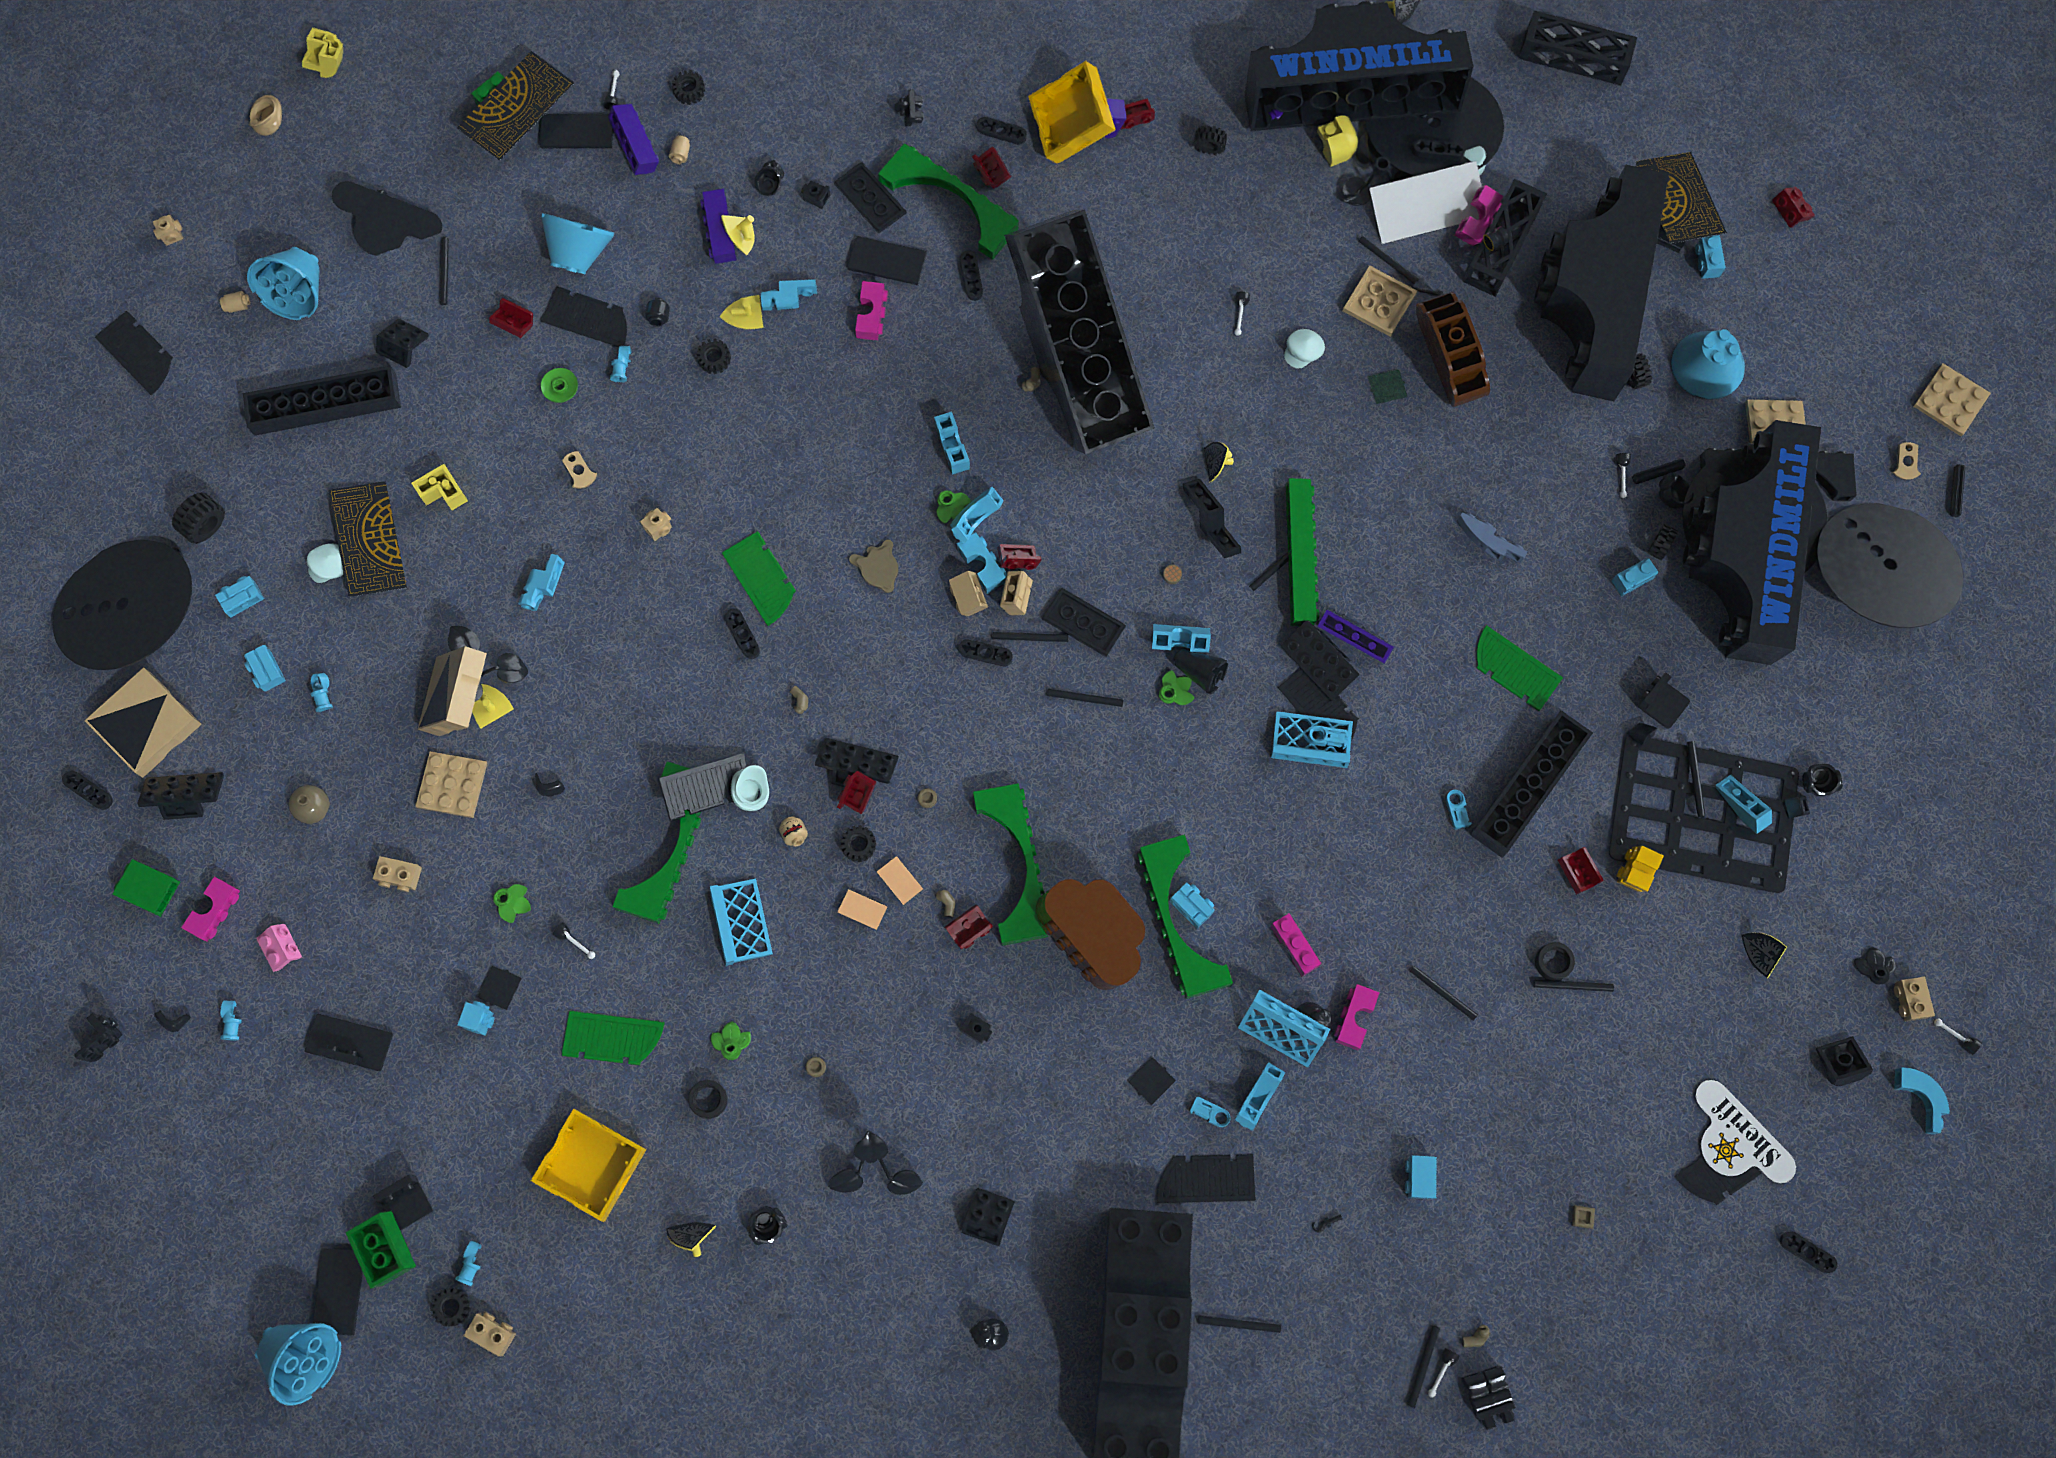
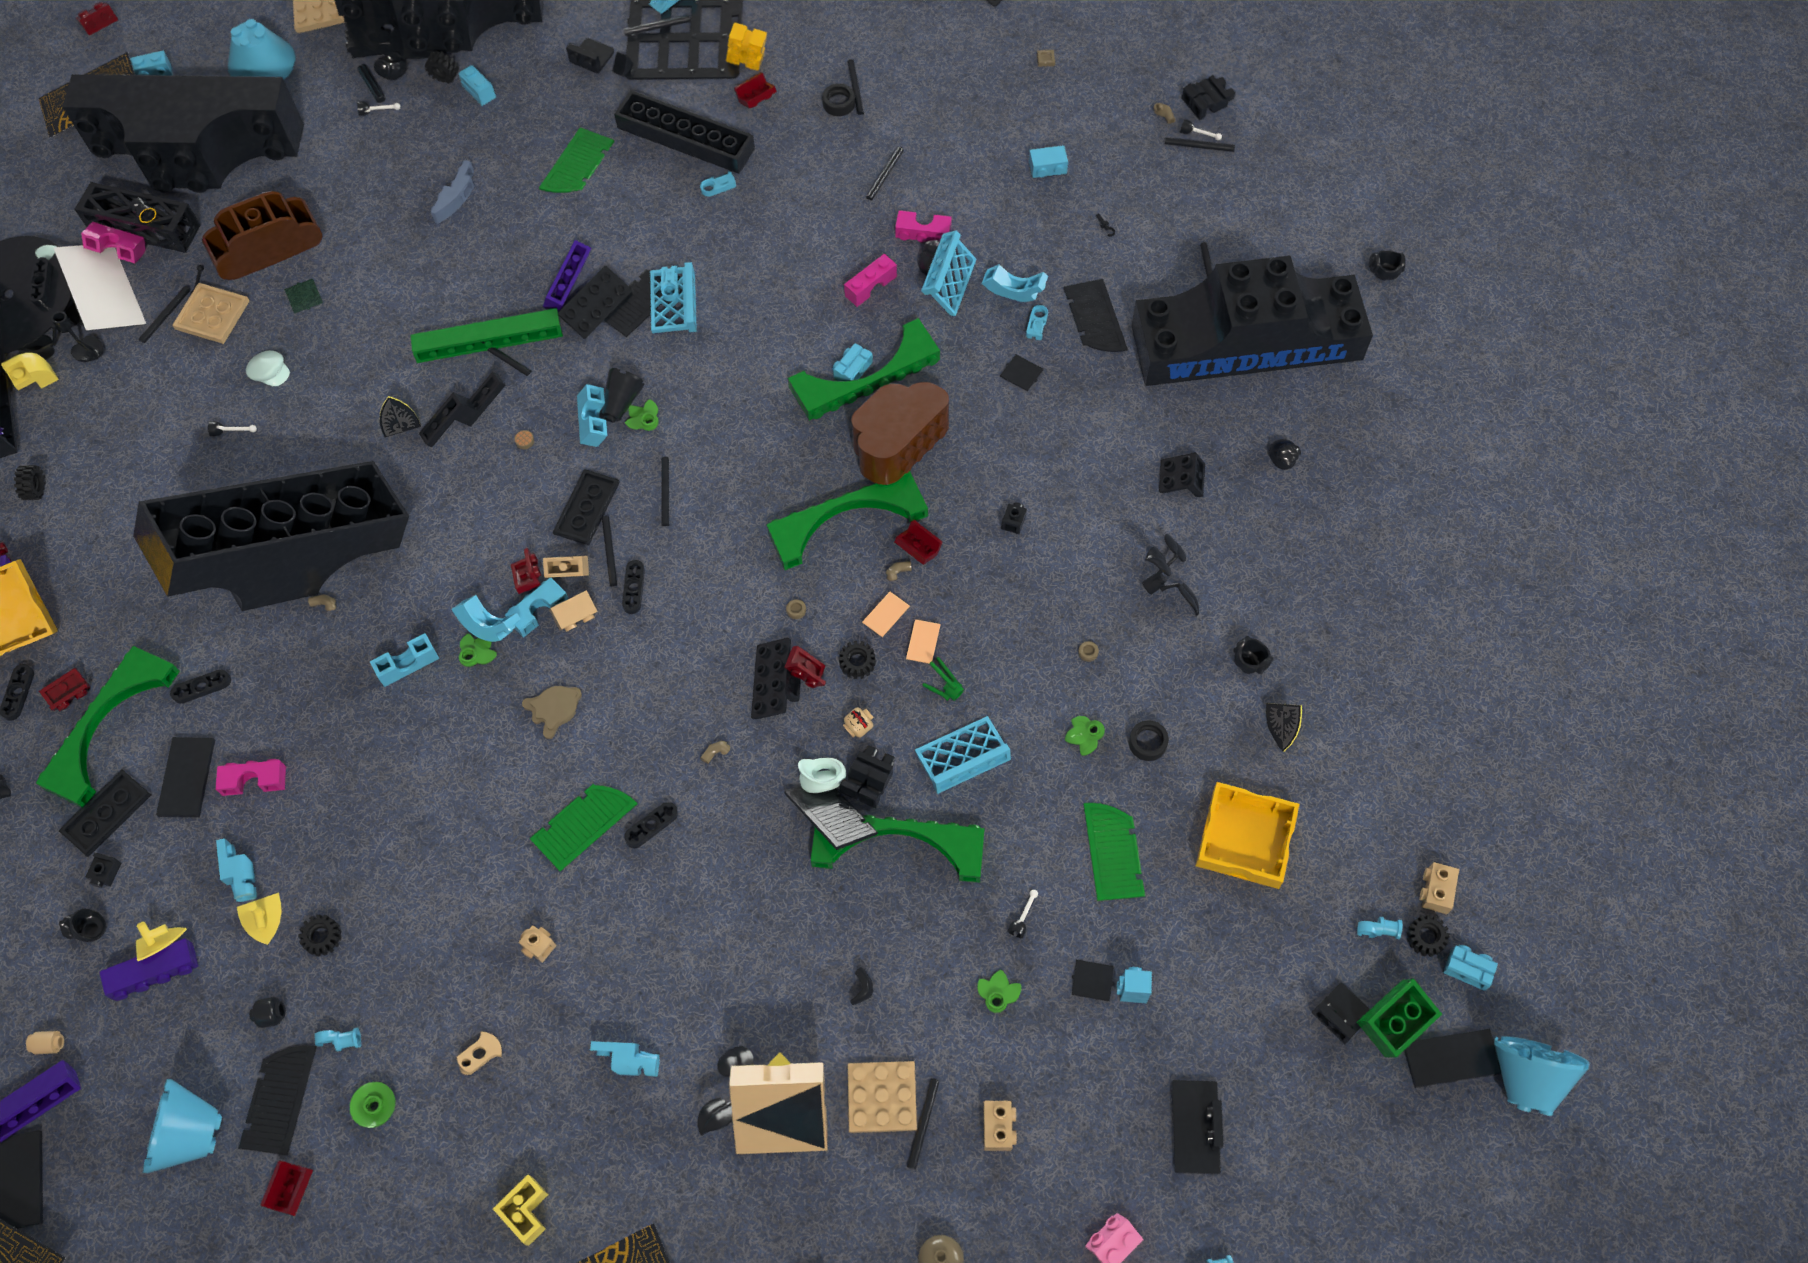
camera: 100 degrees left, 10 degrees down
(410, 1336) = (1470, 967): none -> medium azure brick
(420, 814) = (923, 1123): none -> black bar
(739, 837) = (868, 769): none -> black hips
(806, 923) = (953, 688): none -> green plant

